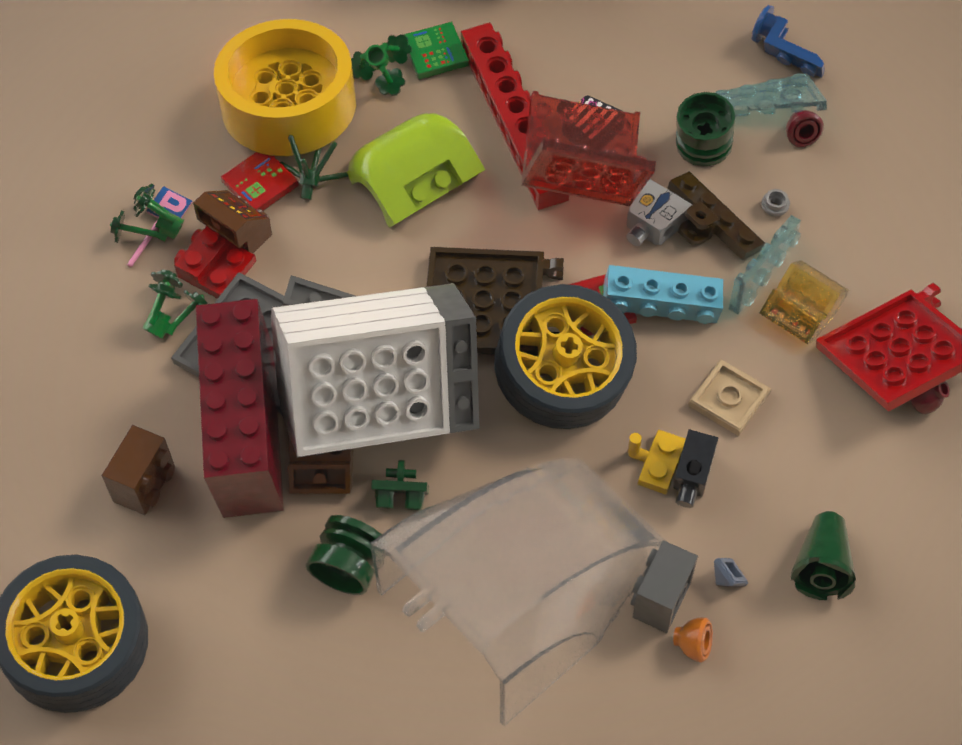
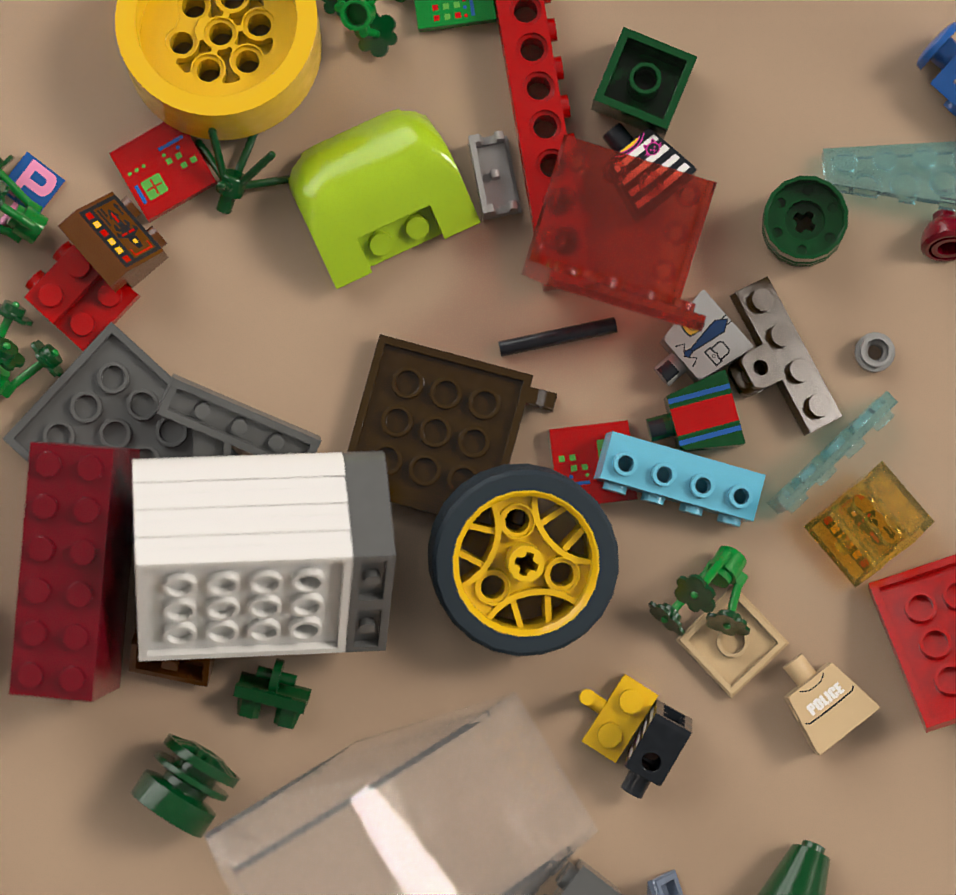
camera: 10 degrees right, 25 degrees up
(487, 145) = (494, 175): none -> light grey hinge
(554, 232) = (557, 336): none -> black bar
(575, 70) = (643, 82): none -> dark green brick
(669, 252) = (700, 417): none -> torso
(701, 349) = (695, 591): none -> plant
(809, 420) = (825, 703): none -> tan torso

